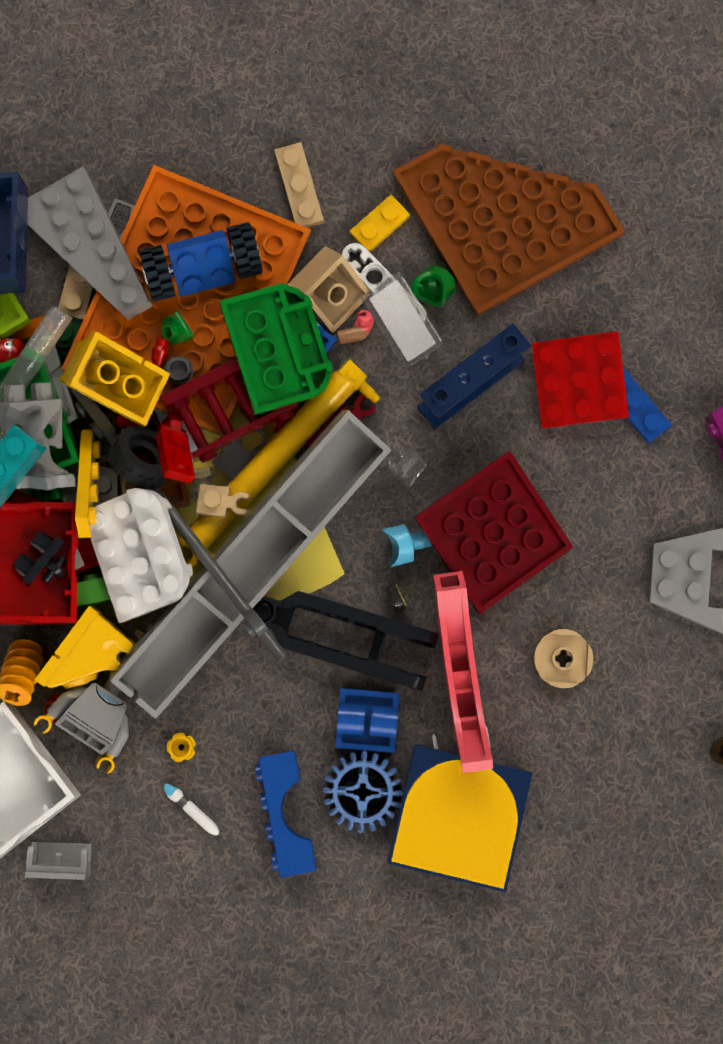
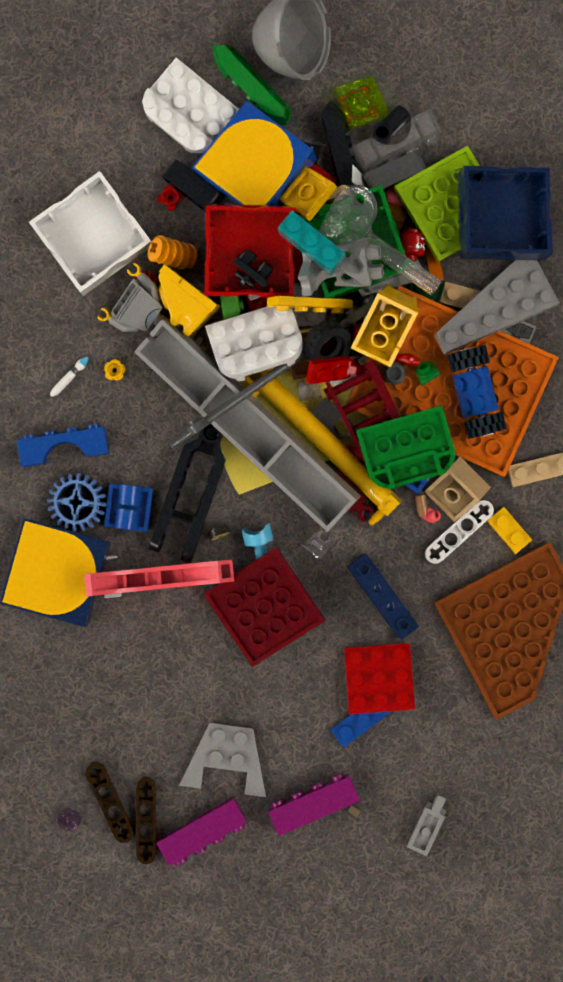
camera: 90 degrees right, 5 degrees up
(58, 860) = (36, 280): light grey hinge -> none
(217, 501) = (293, 400): tan plate -> none
(402, 320) = (430, 544): clear piece -> none
(433, 286) = (456, 570): green piece -> none
(575, 647) = (161, 645): tan plate -> none

